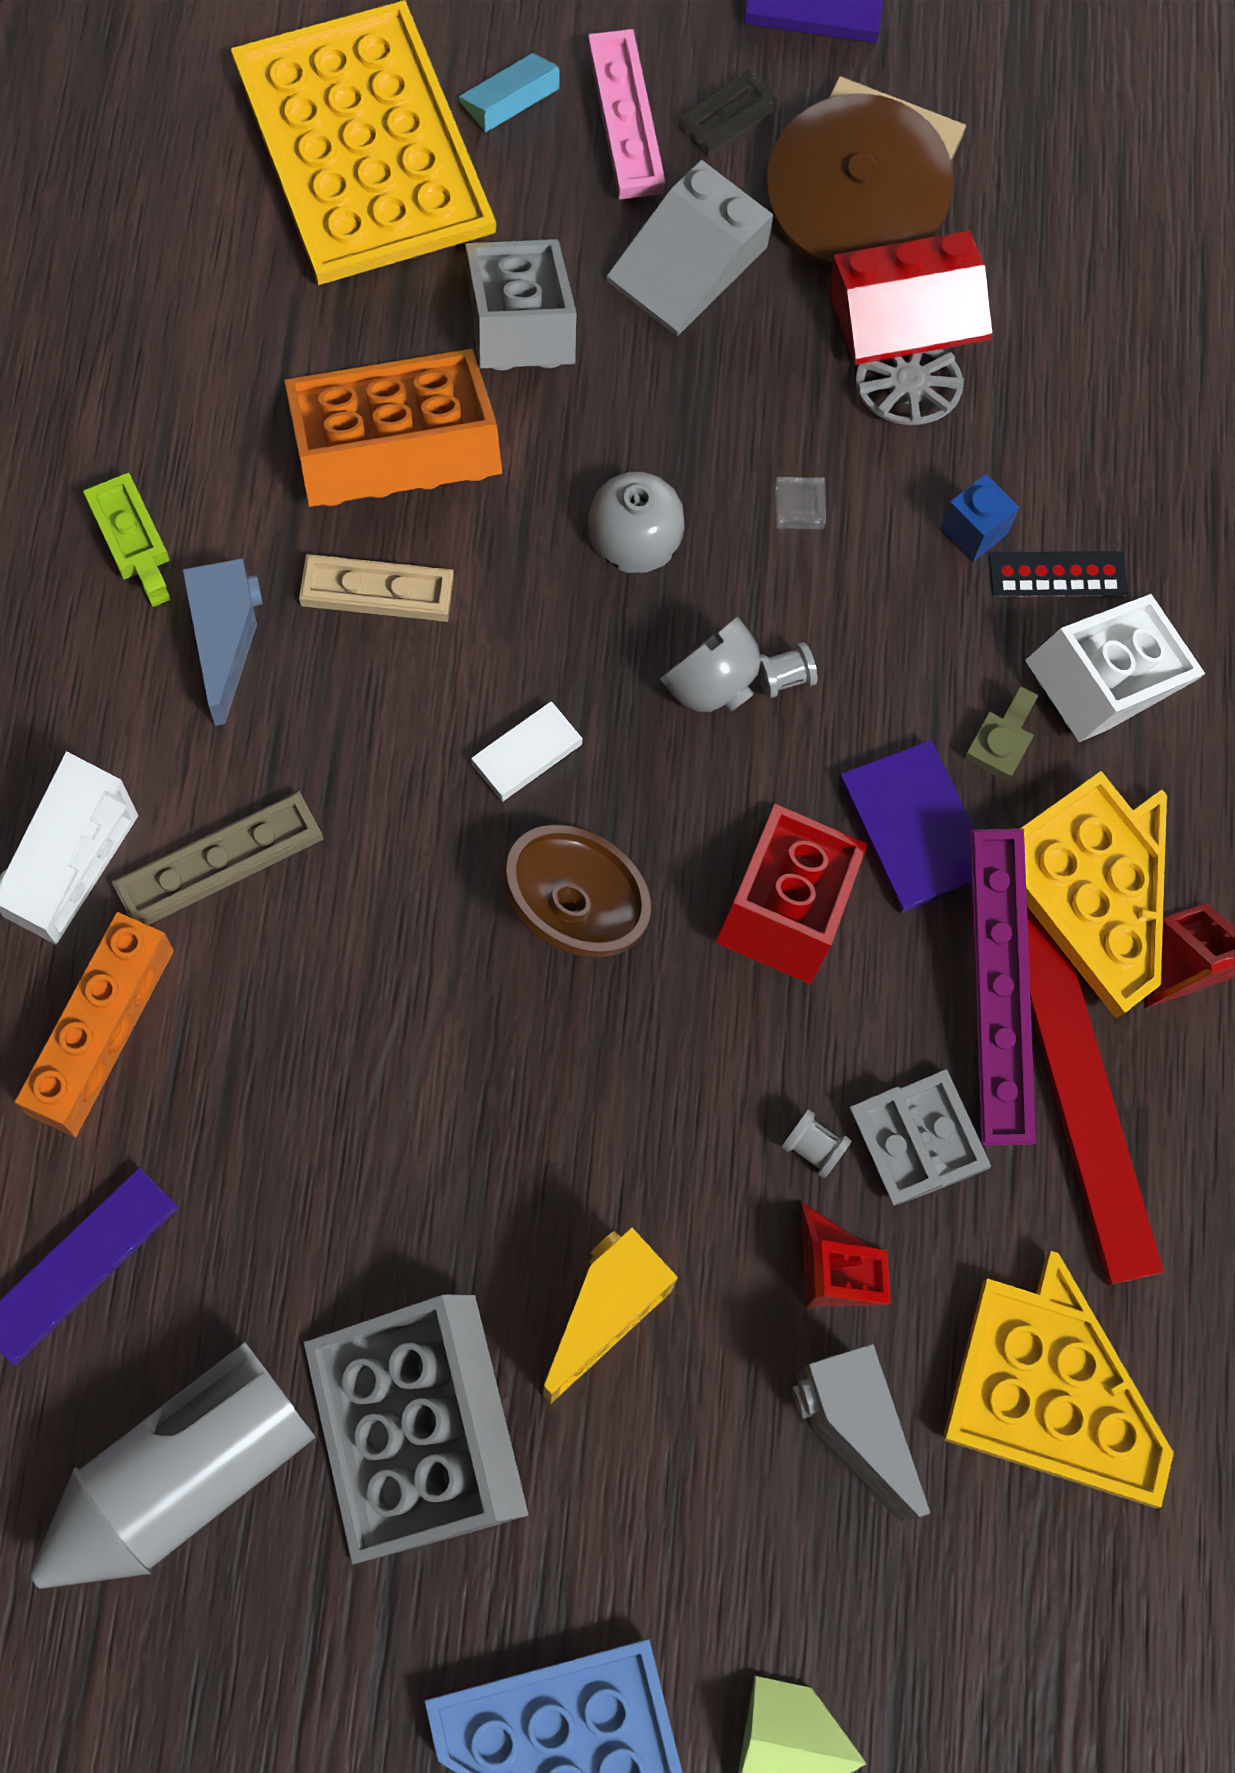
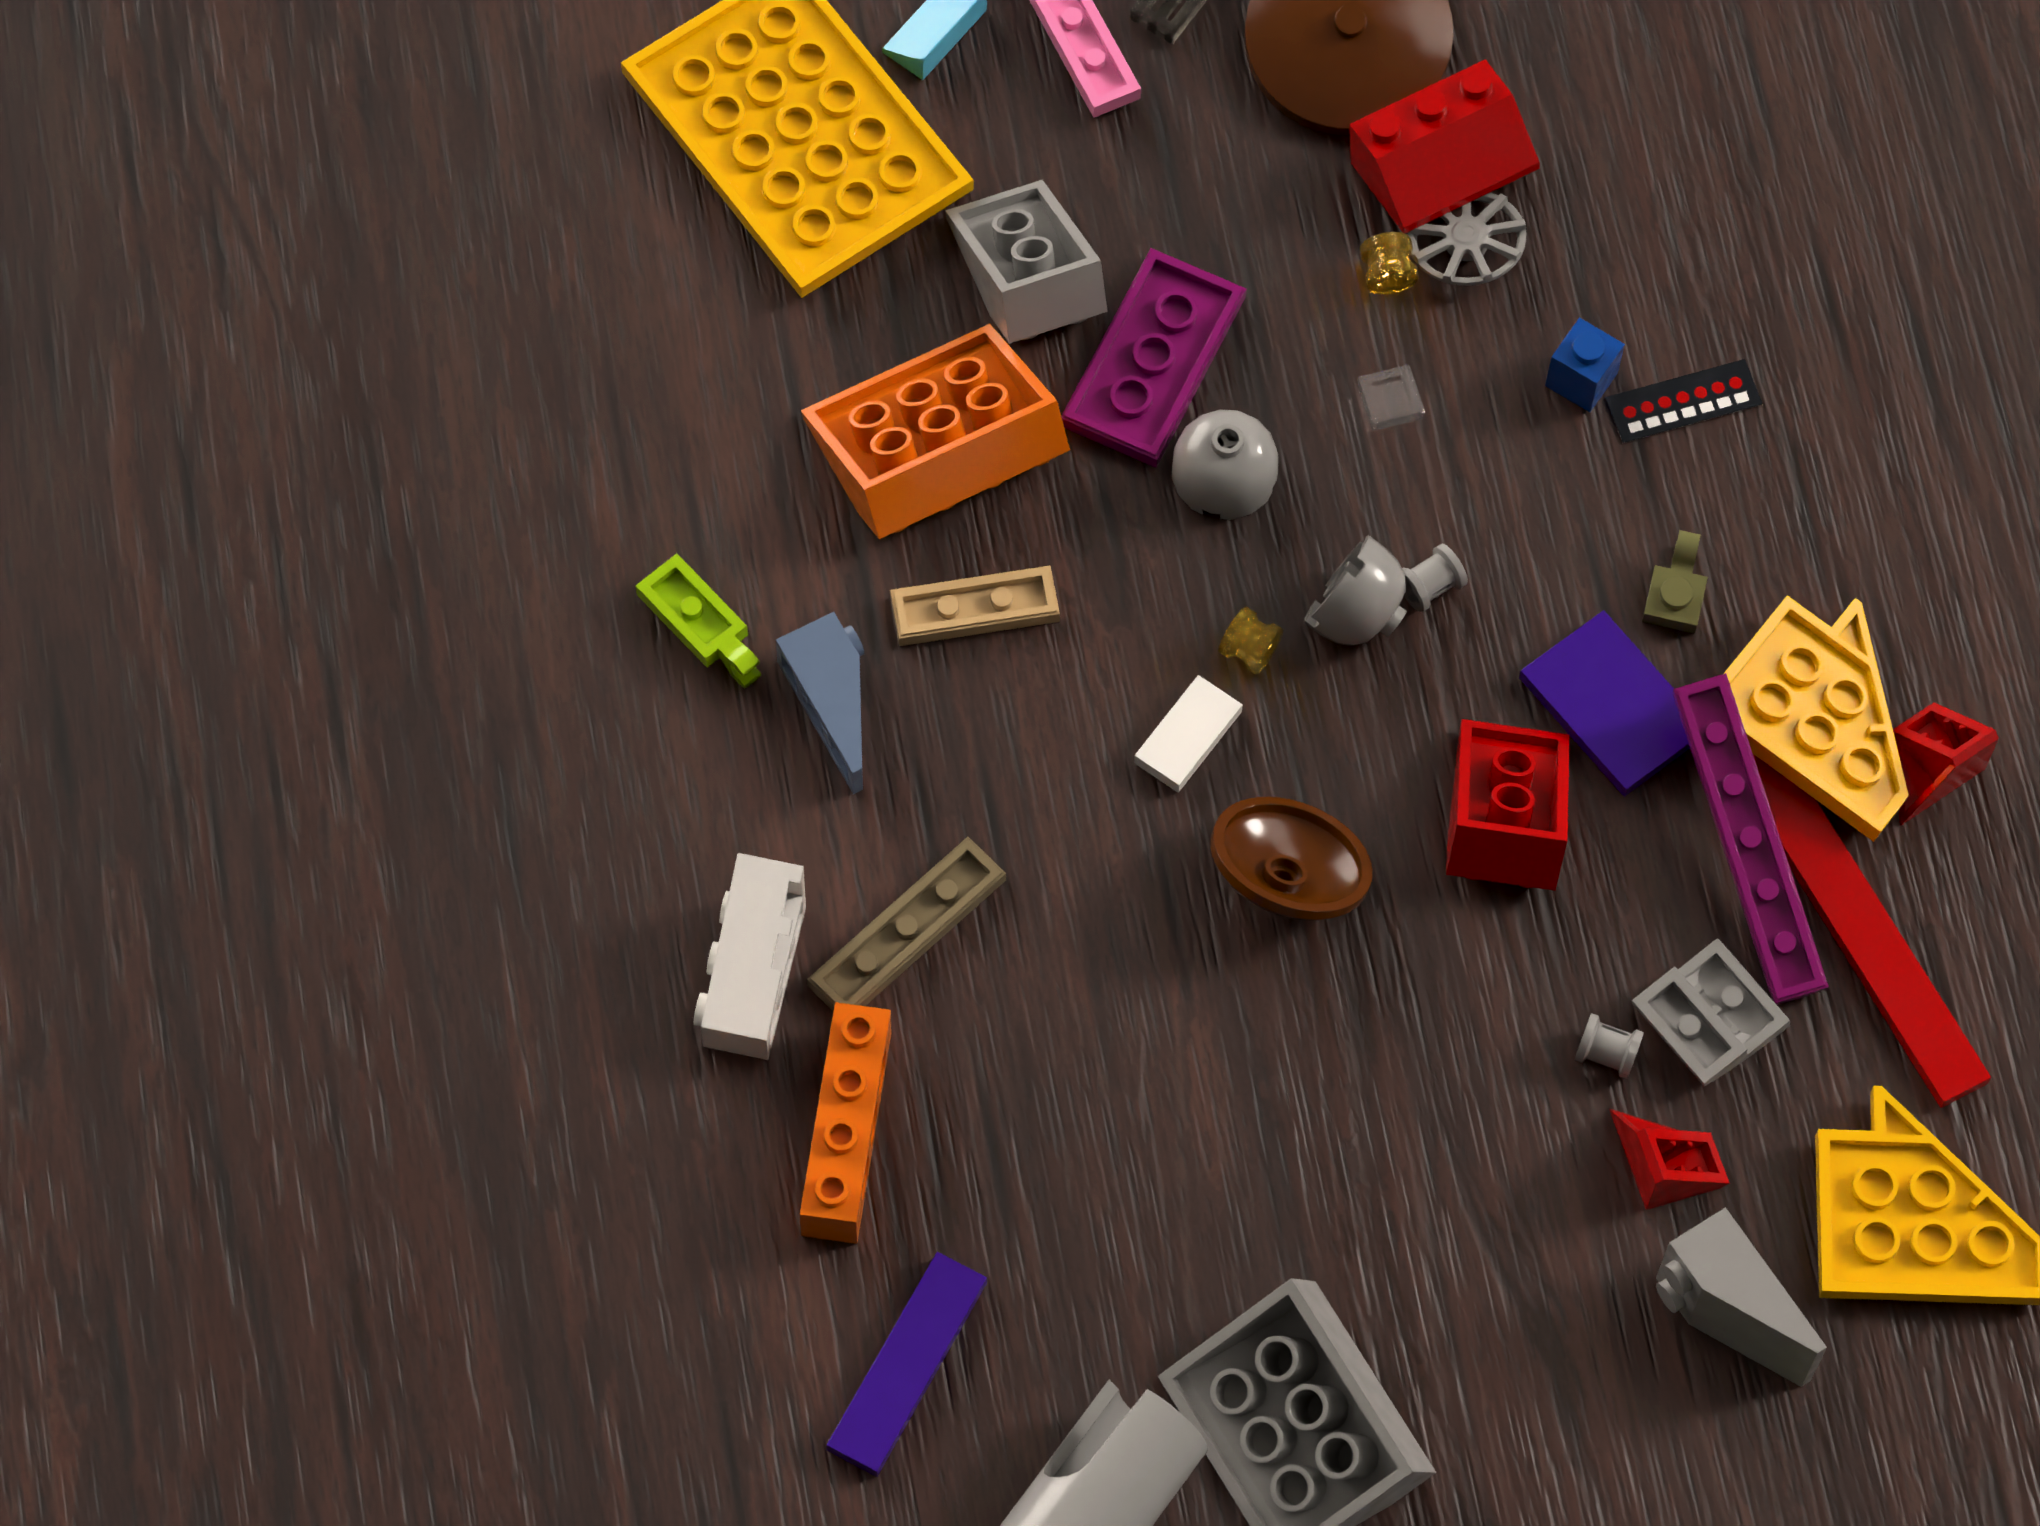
camera: 10 degrees left, 5 degrees down
(603, 414) = (1153, 357): none -> magenta tile
(607, 682) = (1250, 640): none -> clear yellow wheel
(618, 1292) = (1461, 1231): yellow slope -> none
(692, 248) = (1191, 153): light grey slope -> none
(833, 385) = (1388, 263): none -> clear yellow wheel
(1113, 666) = (1769, 483): white slope -> none

